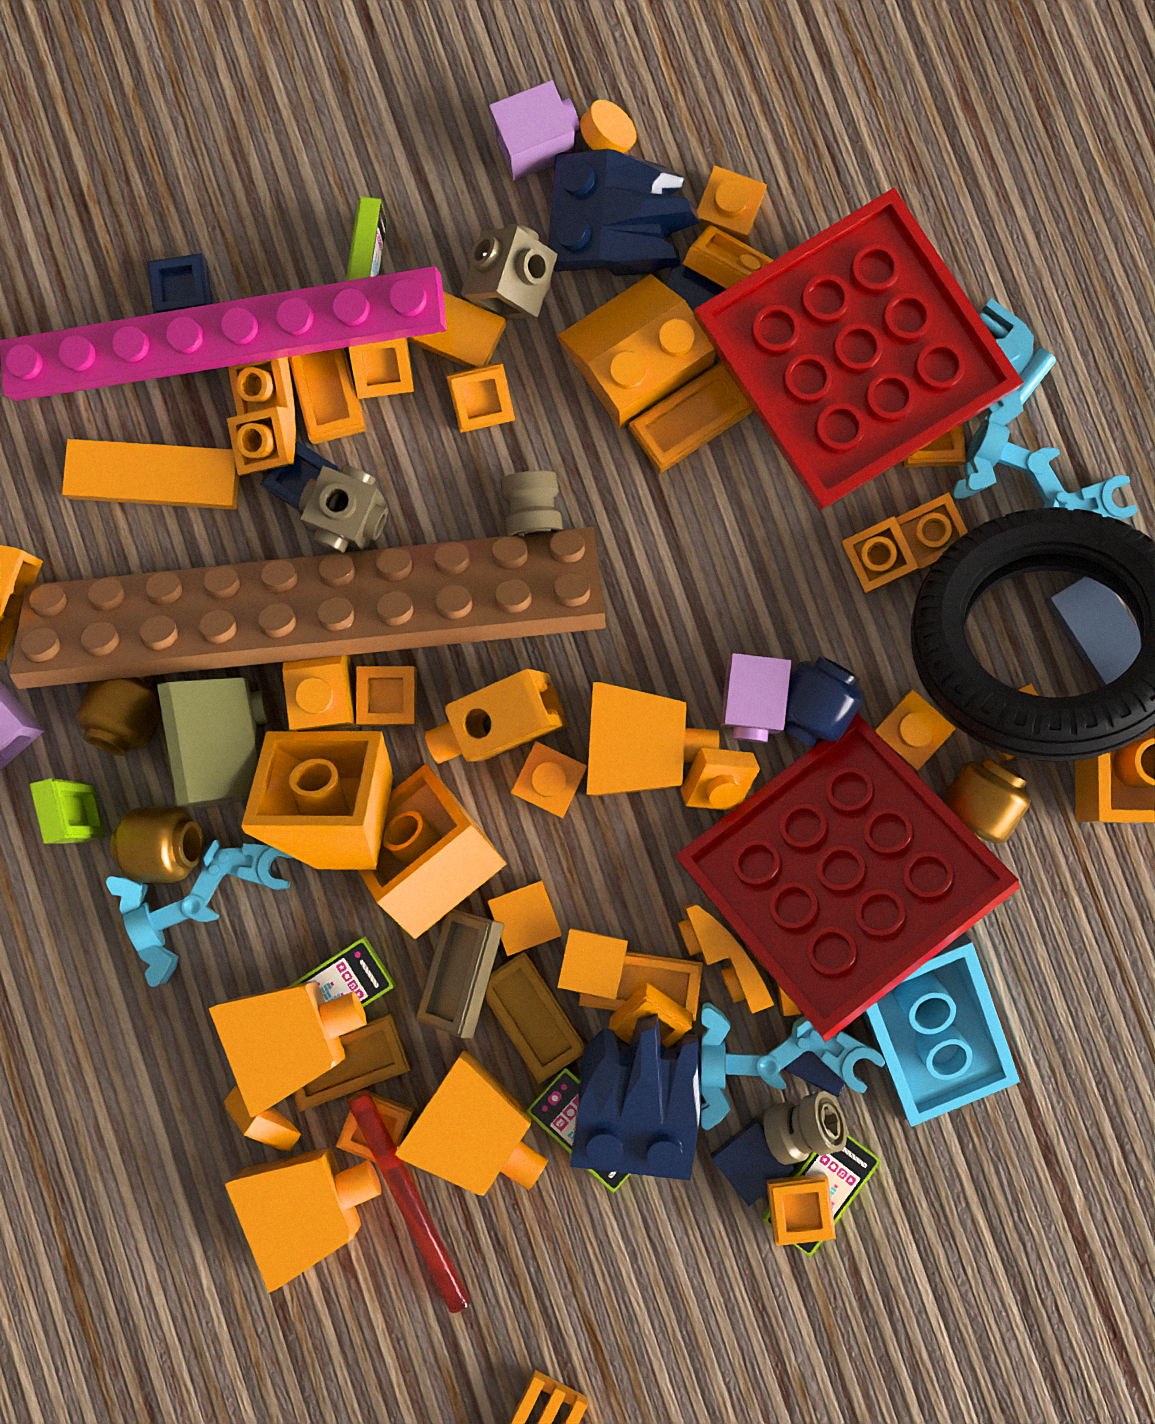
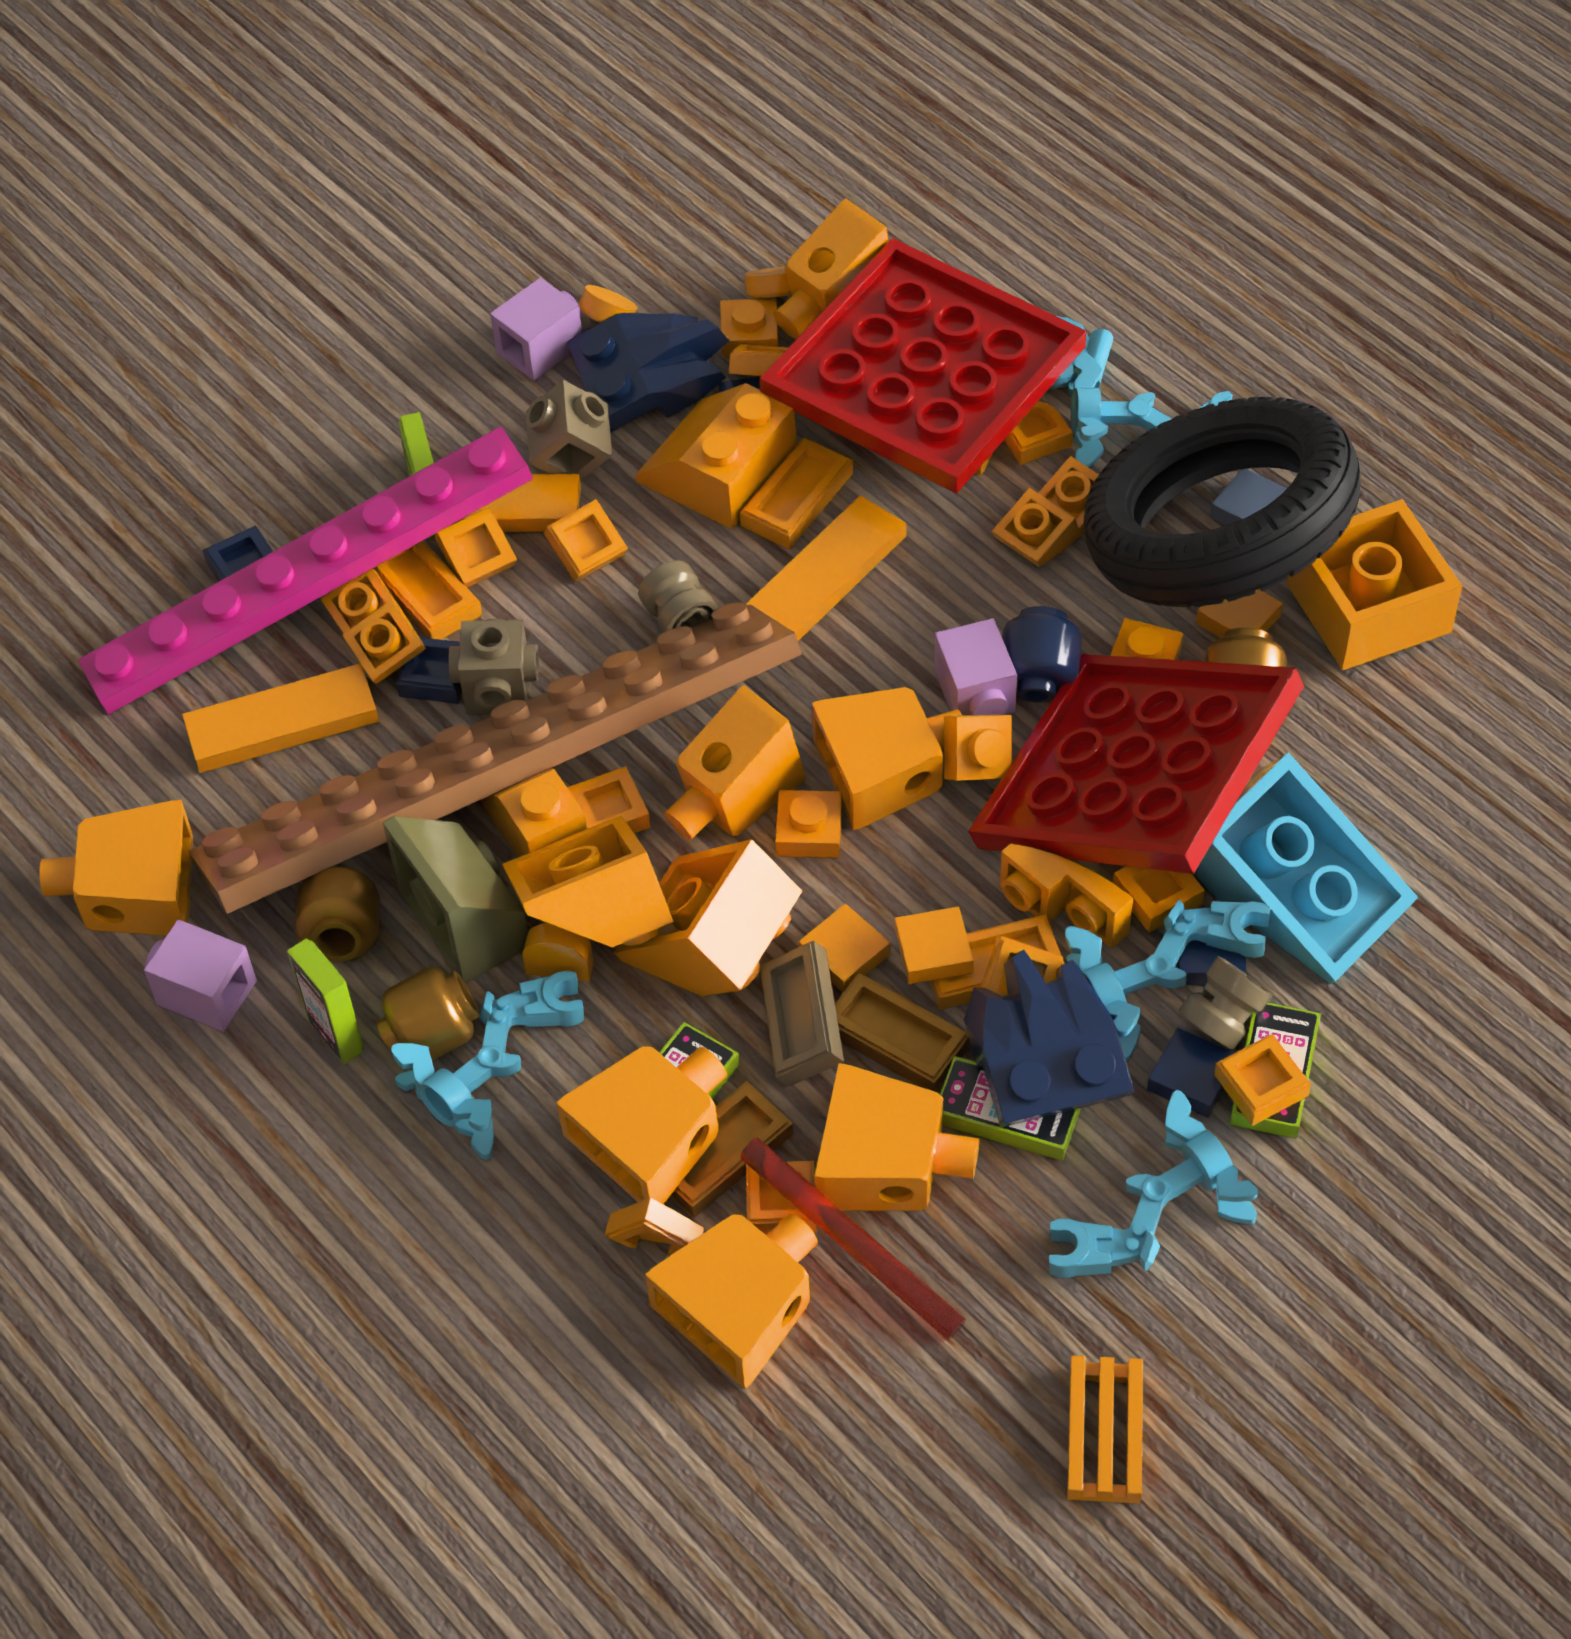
camera: 25 degrees left, 30 degrees down
(606, 1291) = (1205, 1163): none -> medium azure piece
(680, 516) = (830, 566): none -> light orange tile
(771, 164) = (767, 283): none -> light orange tile
(825, 188) = (828, 264): none -> light orange torso

